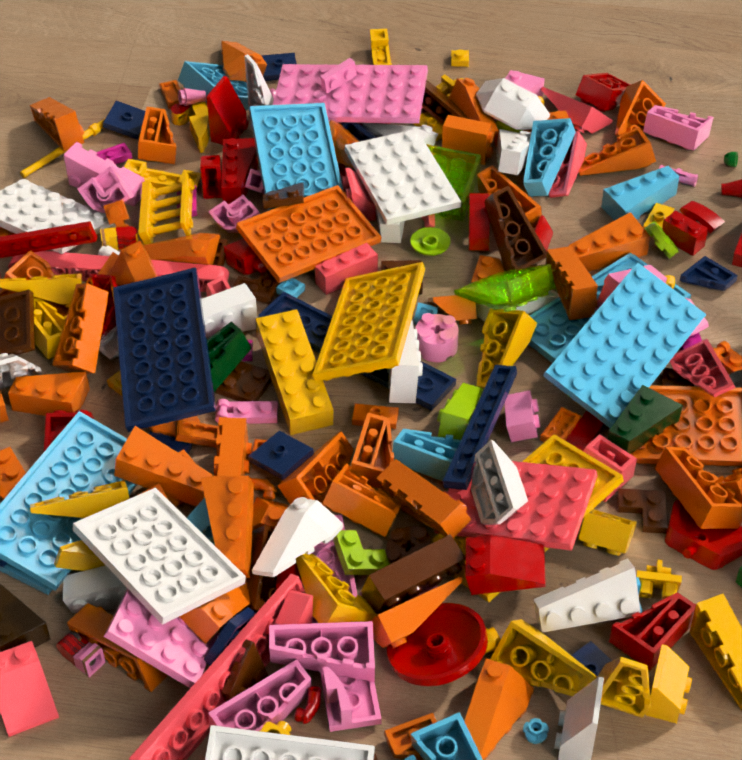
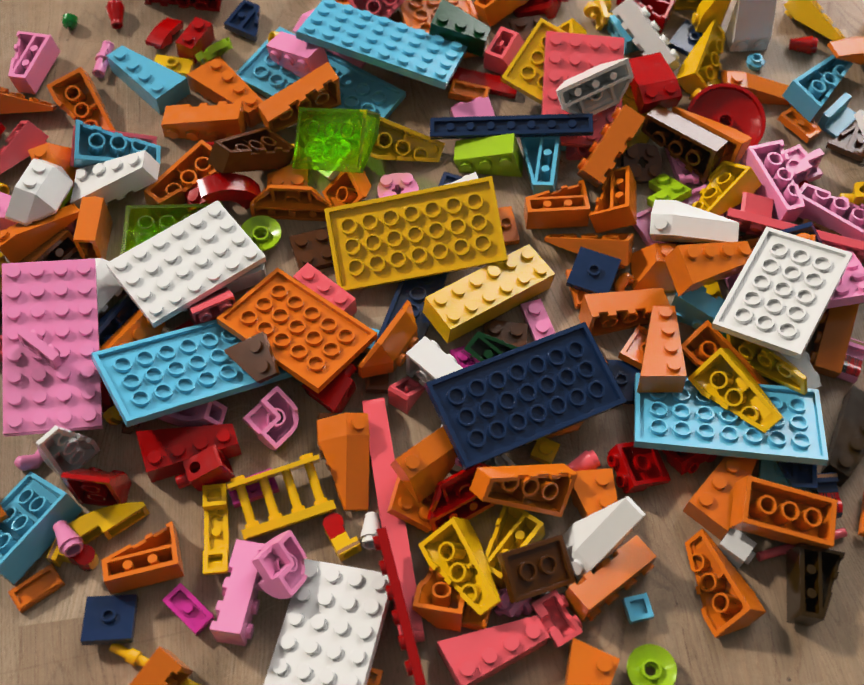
camera: 110 degrees left, 15 degrees up
(93, 401) = (586, 461): none -> coral cone
(116, 213) = (311, 543): orange plate -> none
(270, 290) = (392, 345): none -> orange wedge
(456, 267) = (290, 203): none -> orange wedge
(571, 220) = (204, 121): none -> orange wedge

